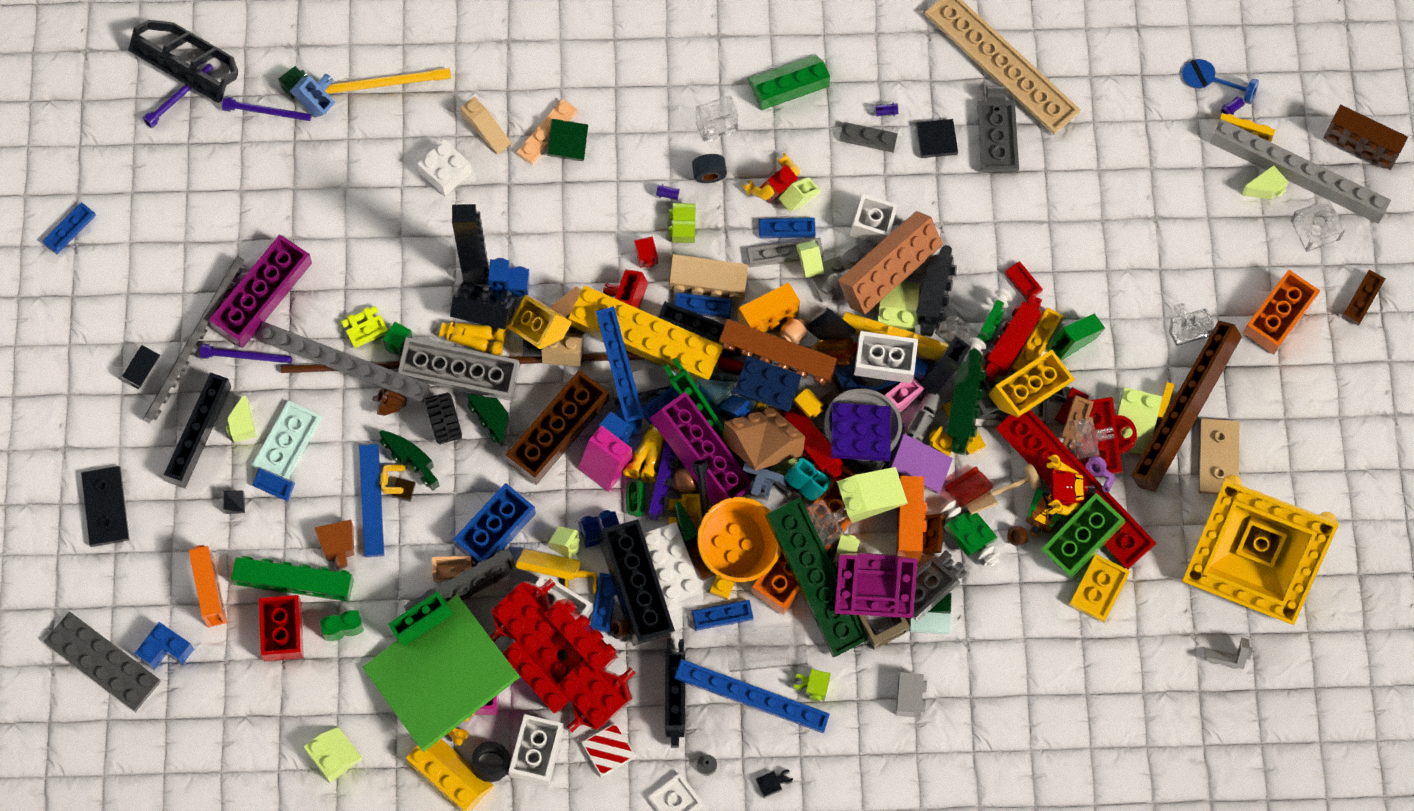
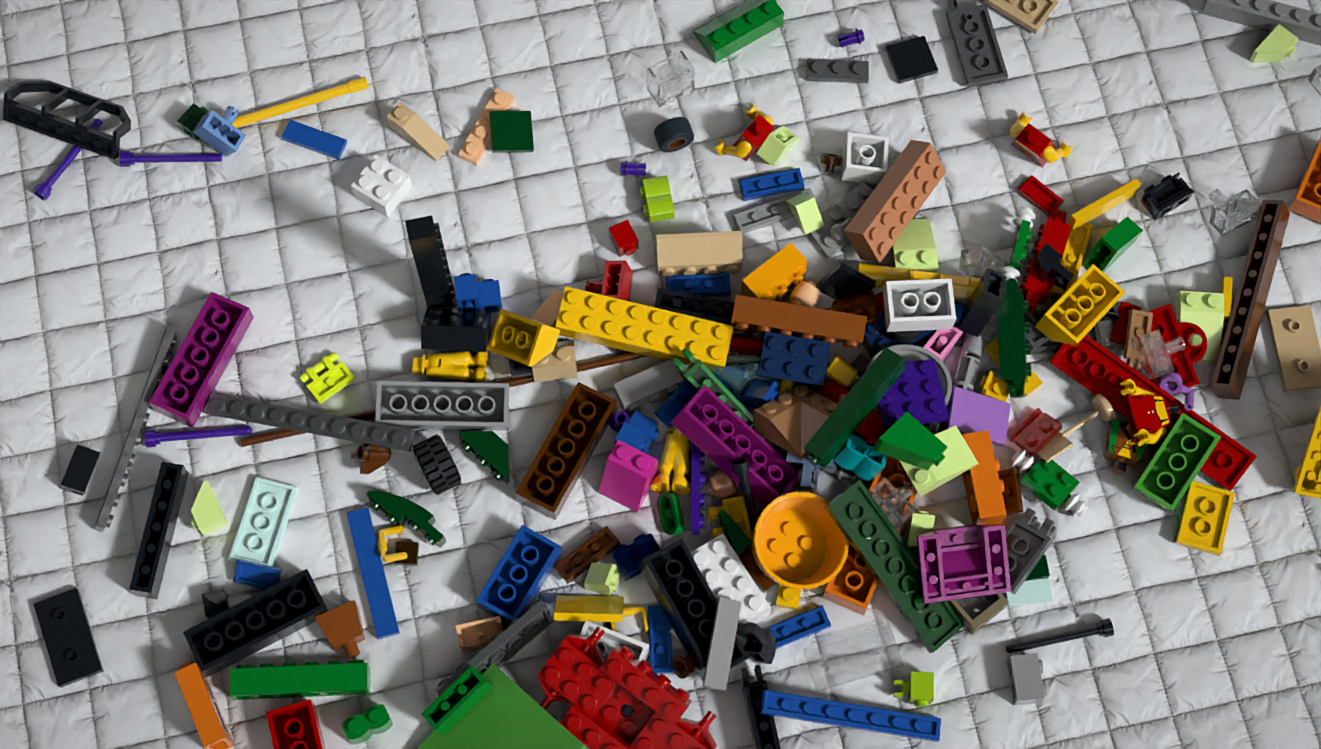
camera: 10 degrees left, 0 degrees up
(264, 523) = (255, 623): none -> black brick
(394, 116) = (314, 139): none -> blue tile
(395, 338) = (365, 384): green brick -> none
(561, 516) = (589, 552): none -> reddish brown plate
(603, 411) = (614, 422): none -> dark purple pin
(619, 364) = (623, 367): blue plate -> none
(653, 614) = (721, 644): none -> light grey tile
(687, 620) = (759, 644): none -> black brick
(809, 435) = (854, 408): none -> dark green brick
(843, 216) = (831, 160): none -> reddish brown tile
(850, 474) = (911, 443): none -> green slope
(935, 291) = (949, 223): black hinge -> none
(986, 664) = (1103, 628): none -> black piece
(1012, 344) = (1049, 266): none -> black brick
(1017, 535) = (1101, 476): reddish brown tile -> none
(1027, 233) = (1035, 143): none -> torso
(1076, 299) = (1104, 204): none -> yellow tile
(1135, 301) = (1166, 196): none -> black hinge

